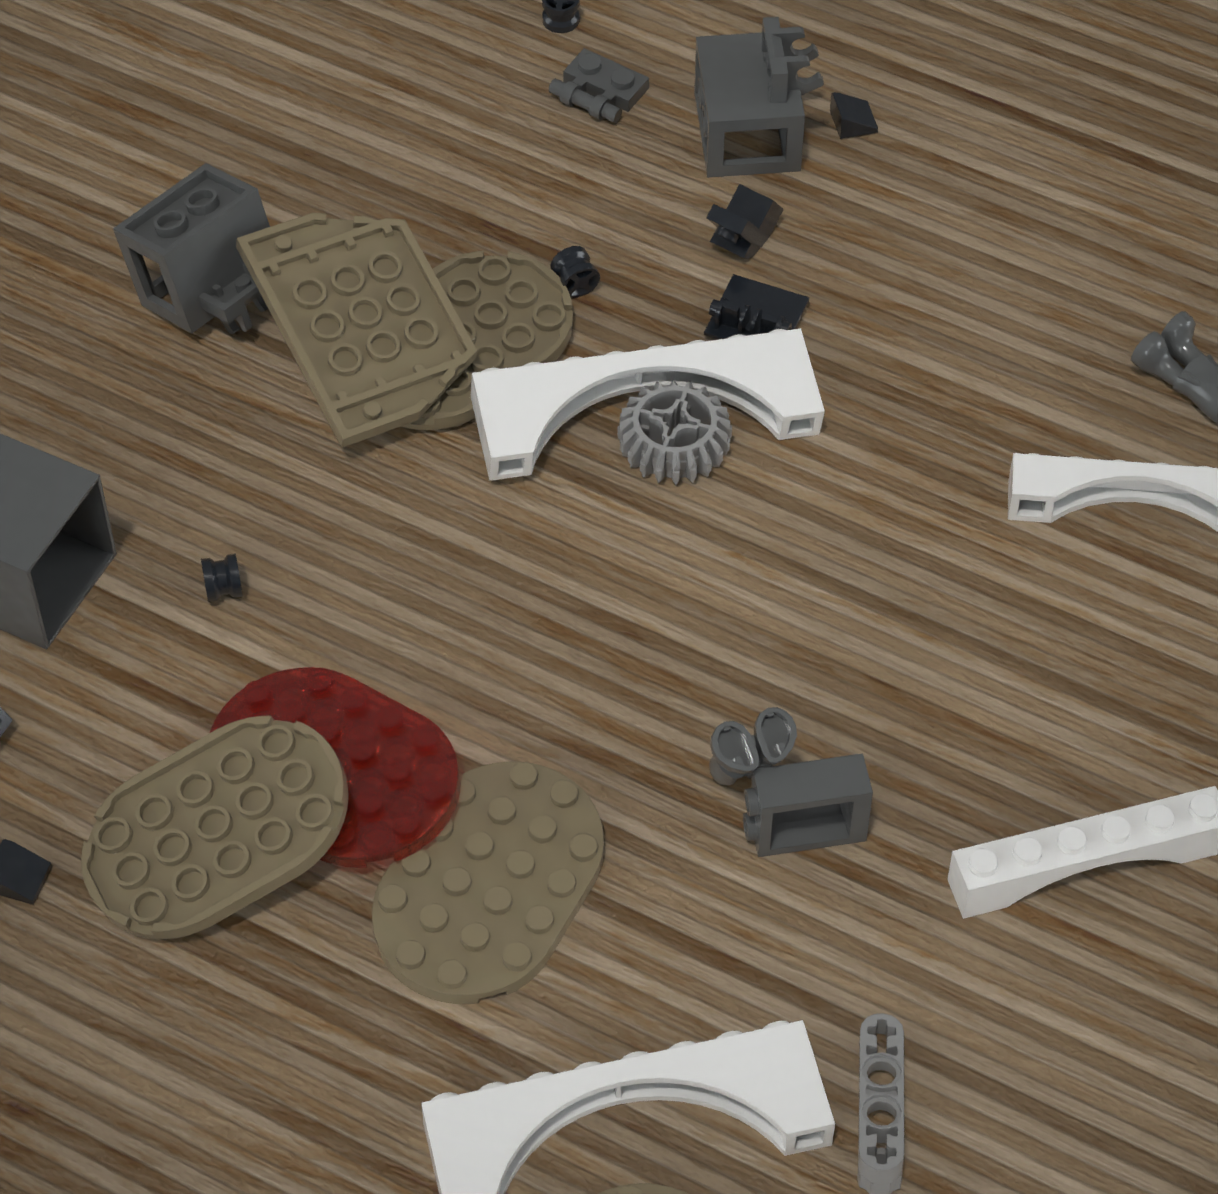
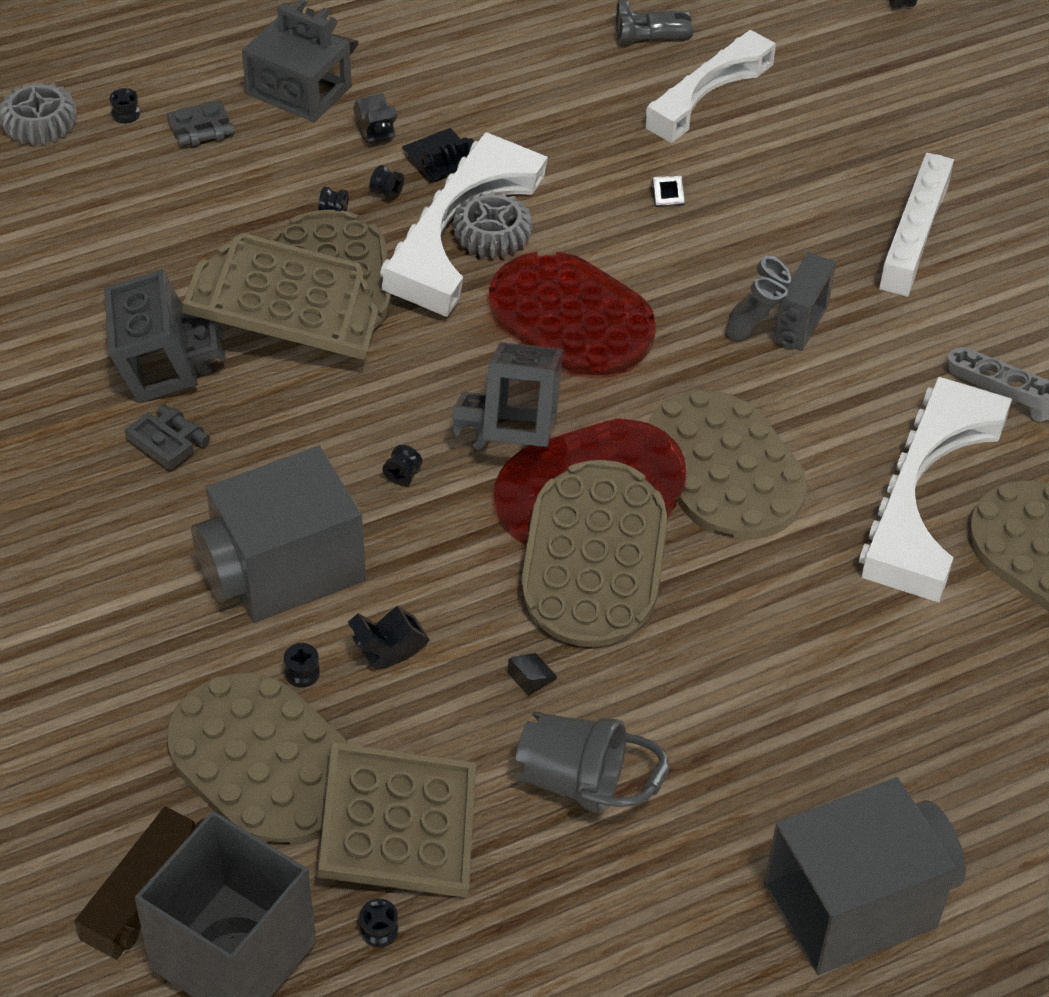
camera: 55 degrees left, 5 degrees down
(90, 356) = (160, 440): none -> dark grey plate
(371, 585) = (484, 410): none -> dark grey piece
(602, 592) = (575, 309): none -> clear red plate
(653, 296) = (386, 182): none -> black wheel
(907, 564) = (667, 190): none -> slope

